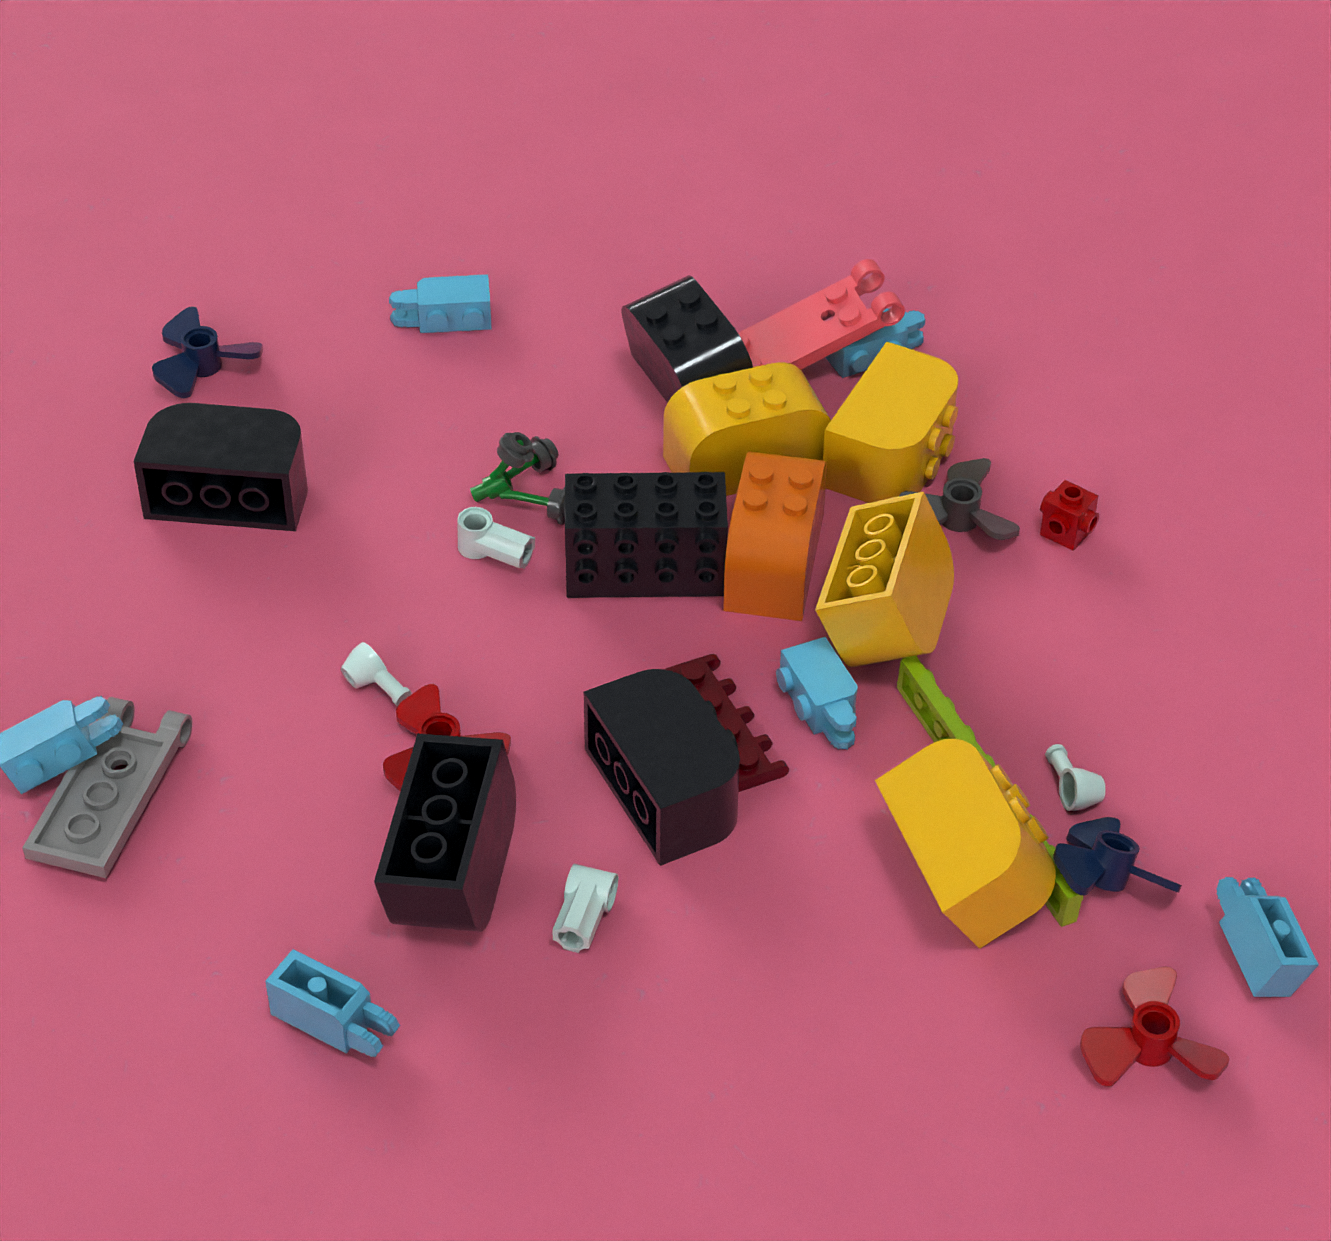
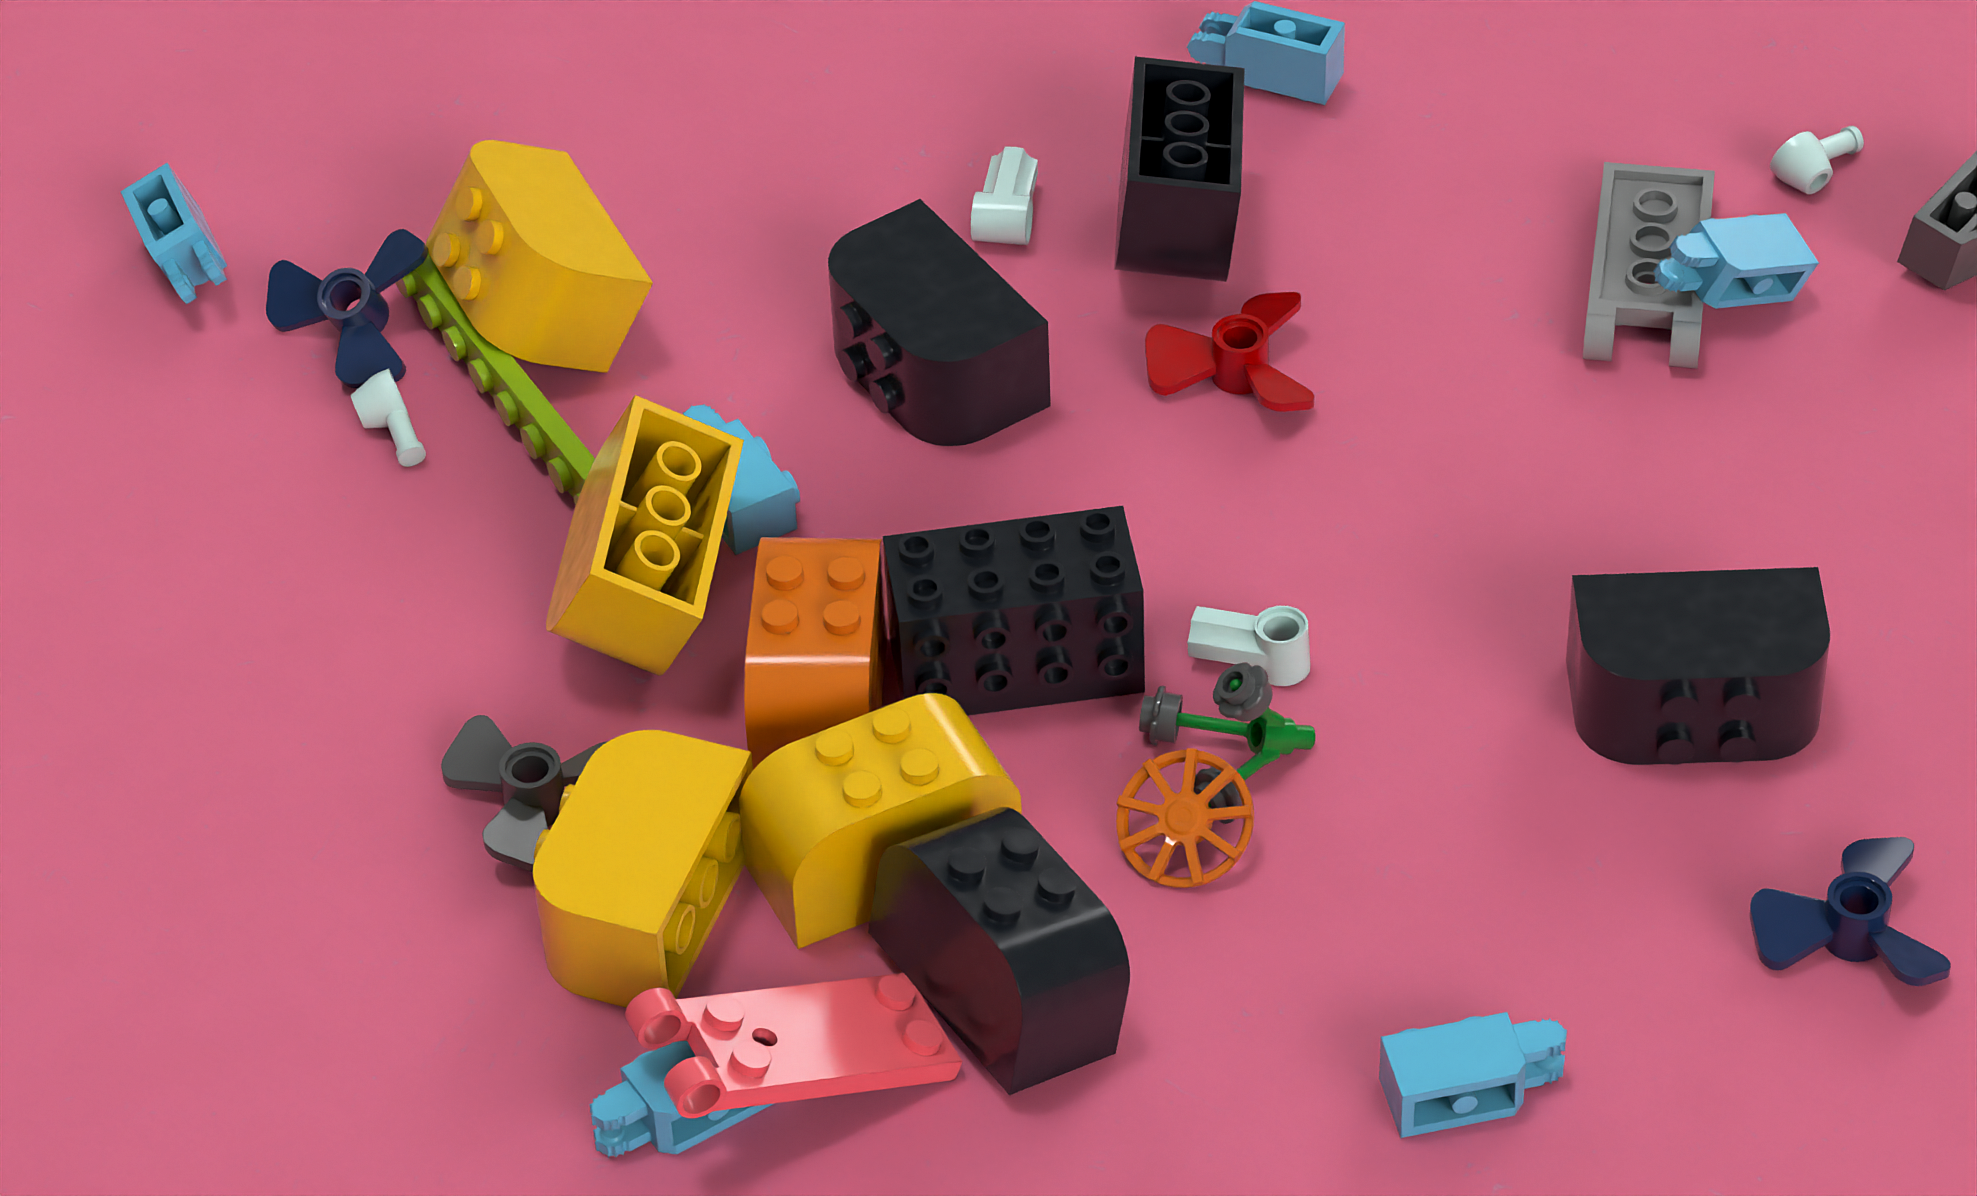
camera: 175 degrees right, 0 degrees up
(366, 667) = (1371, 445): light aqua bar -> none
(564, 435) = (1184, 817): none -> orange wheel
(754, 765) = (871, 444): dark red hinge -> none
(1068, 514) = (361, 779): red brick -> none
(1151, 1036) = (322, 144): red piece -> none

